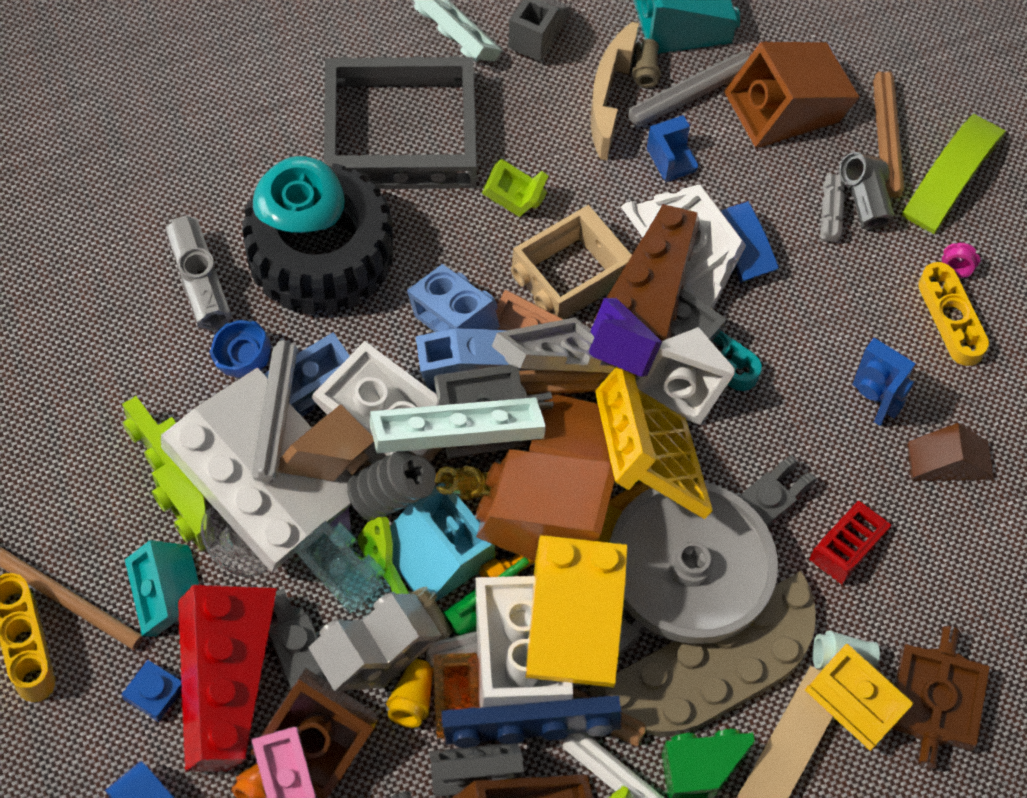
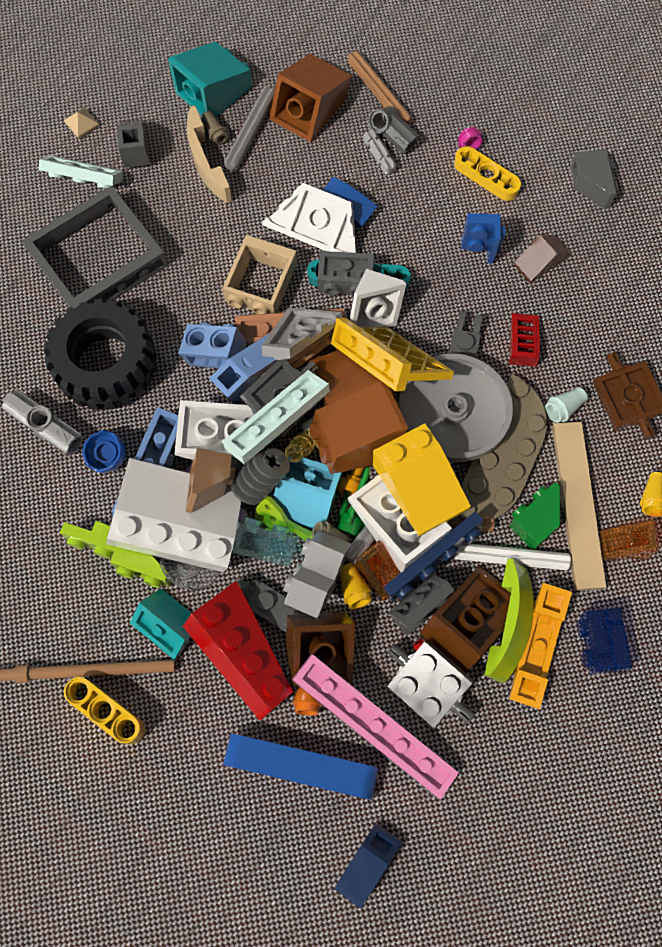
camera: 30 degrees left, 10 degrees up
(152, 691) = (204, 687): blue plate -> none
(274, 412) = (162, 478): light grey axle -> none
(299, 196) = (76, 337): teal hat -> none
(514, 188) = (193, 251): lime bracket -> none
(623, 339) = (330, 302): dark purple slope -> none
(657, 269) = (317, 258): reddish brown wing -> none
(670, 150) = (264, 173): blue panel -> none
(859, 696) = (594, 423): yellow plate -> none
(952, 172) = (430, 91): lime slope -> none

